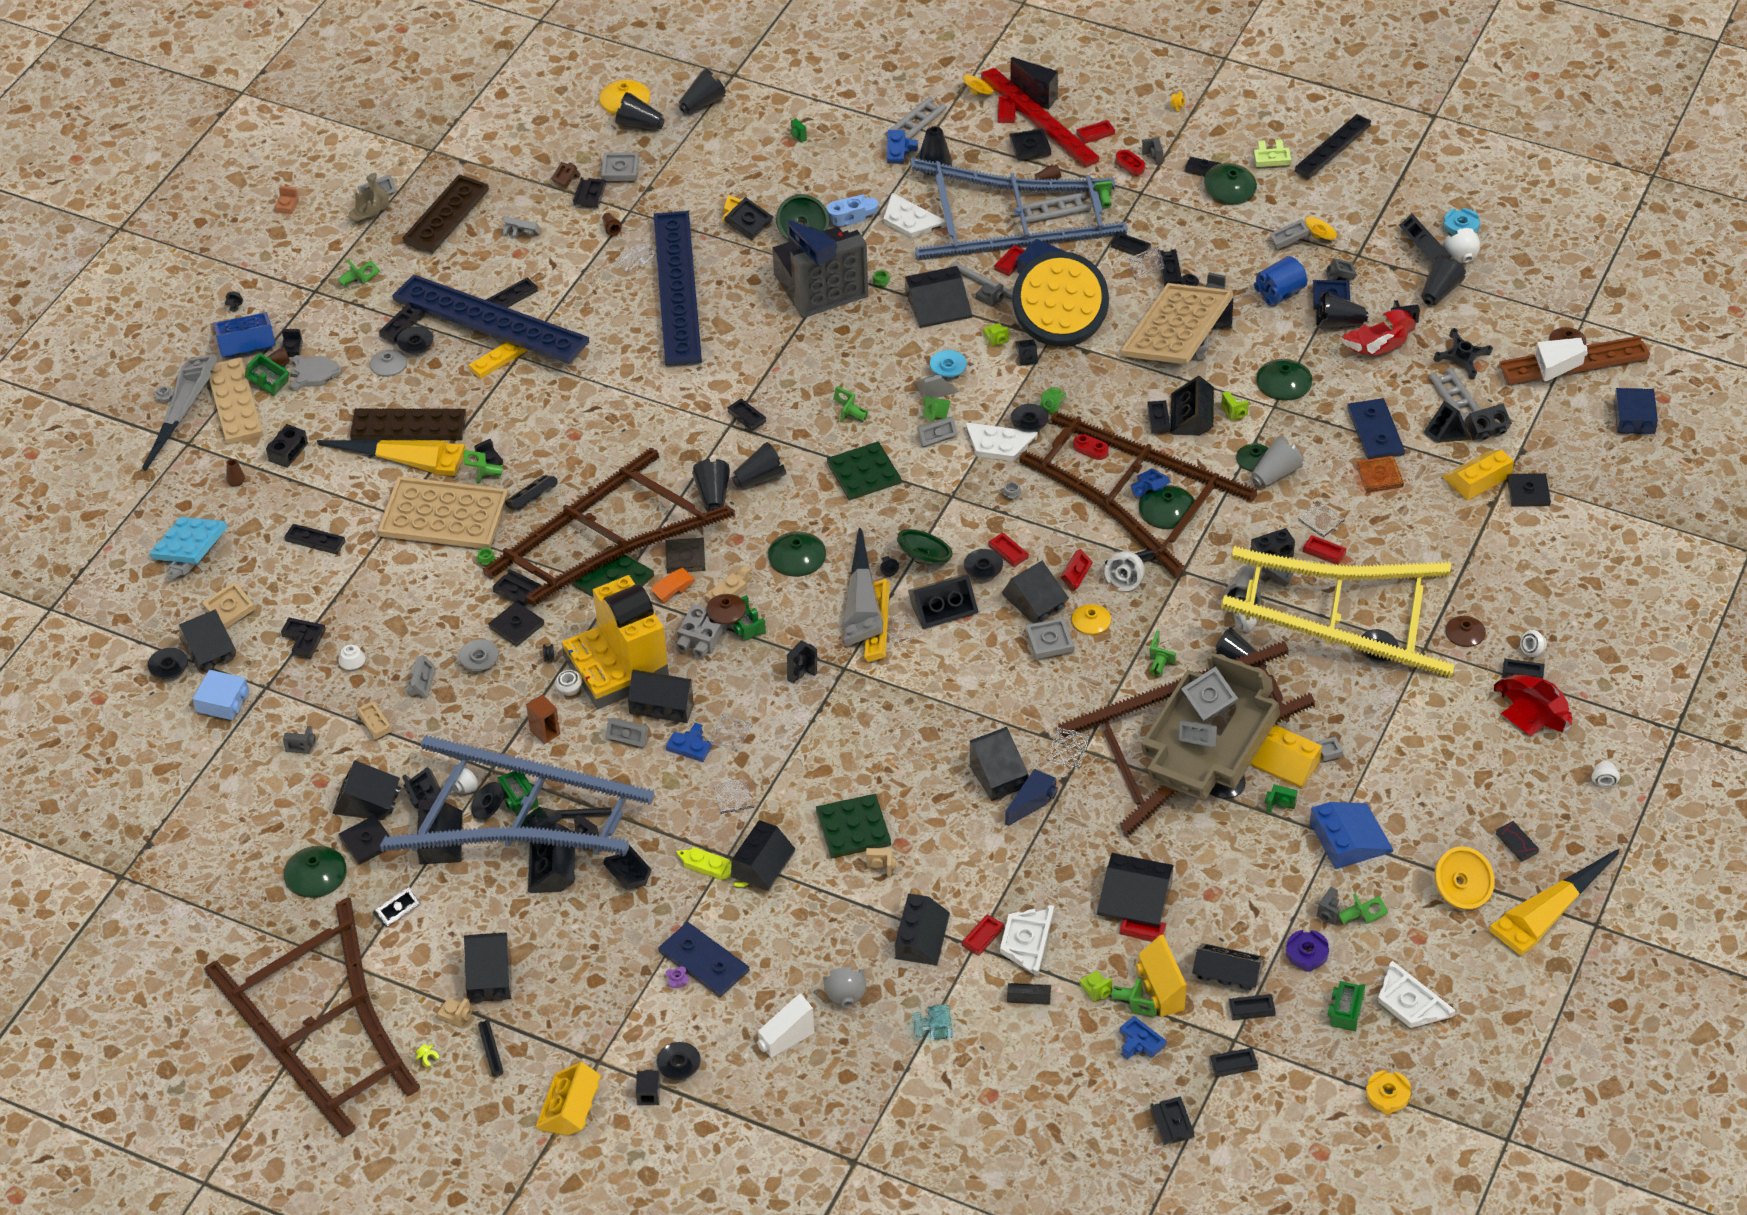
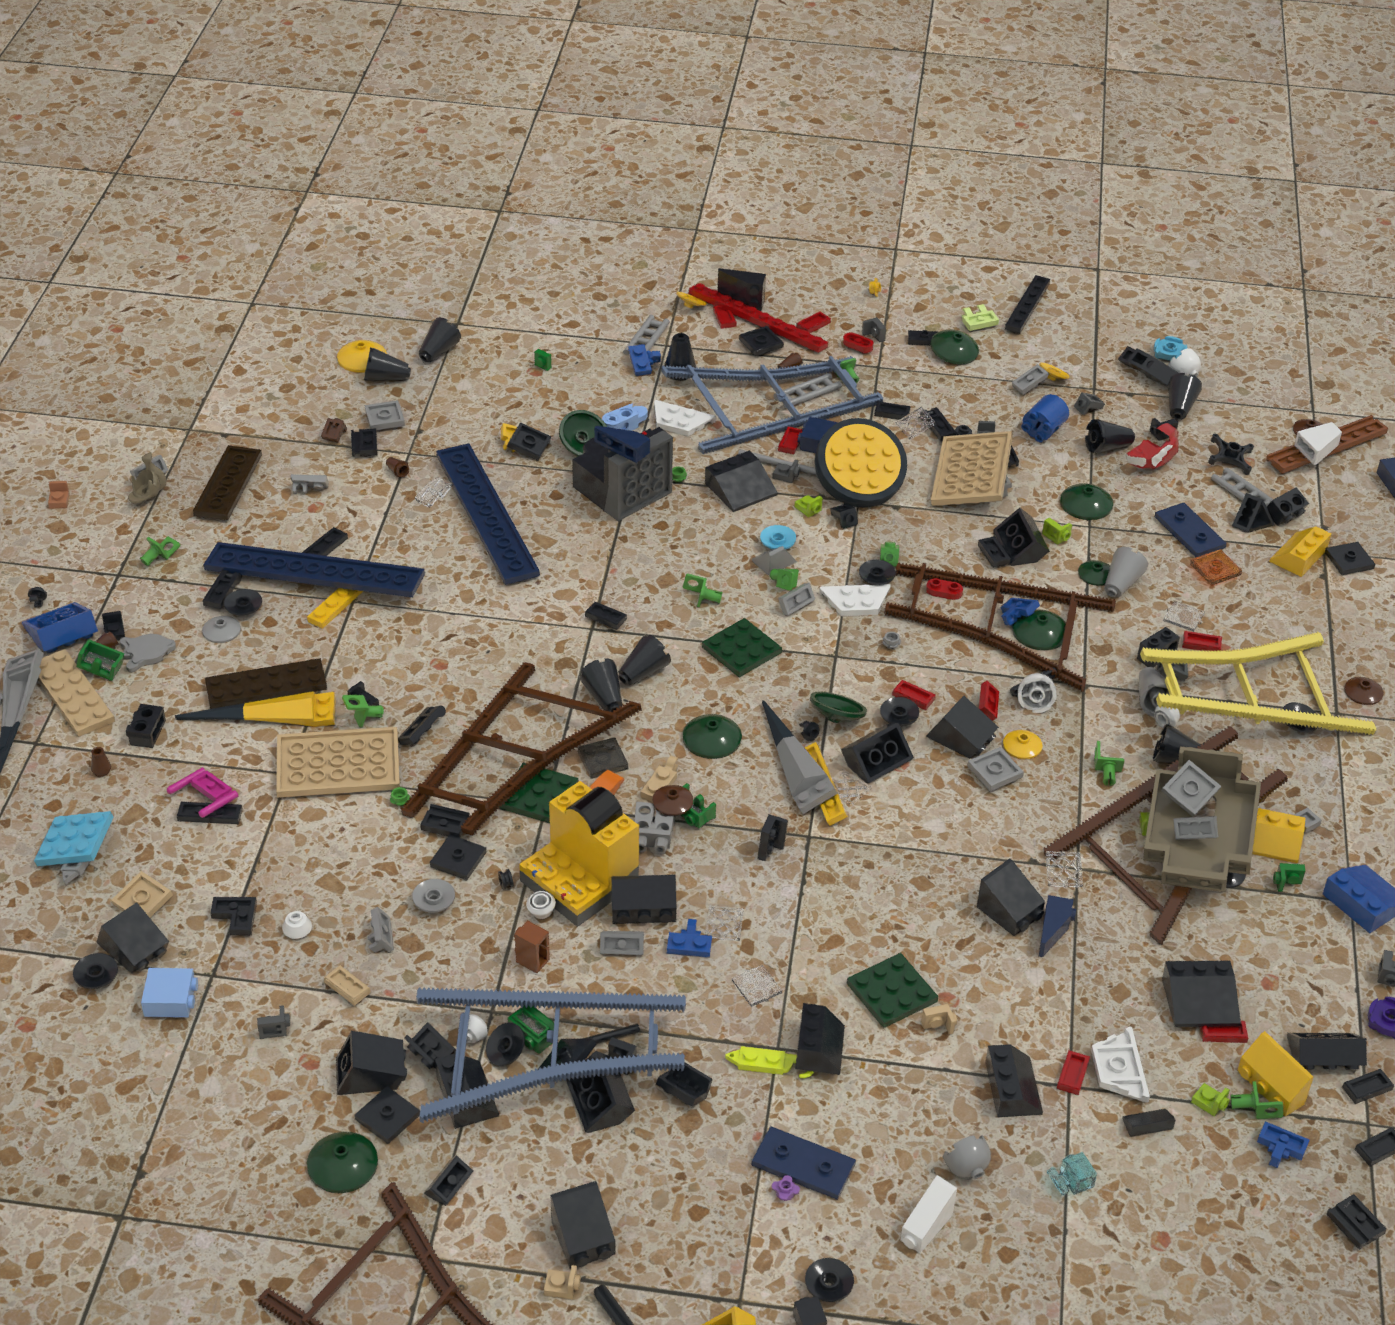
camera: 20 degrees left, 5 degrees down
(321, 513) = (209, 786): none -> dark pink plate
(1336, 287) = (1081, 420): dark blue plate -> none

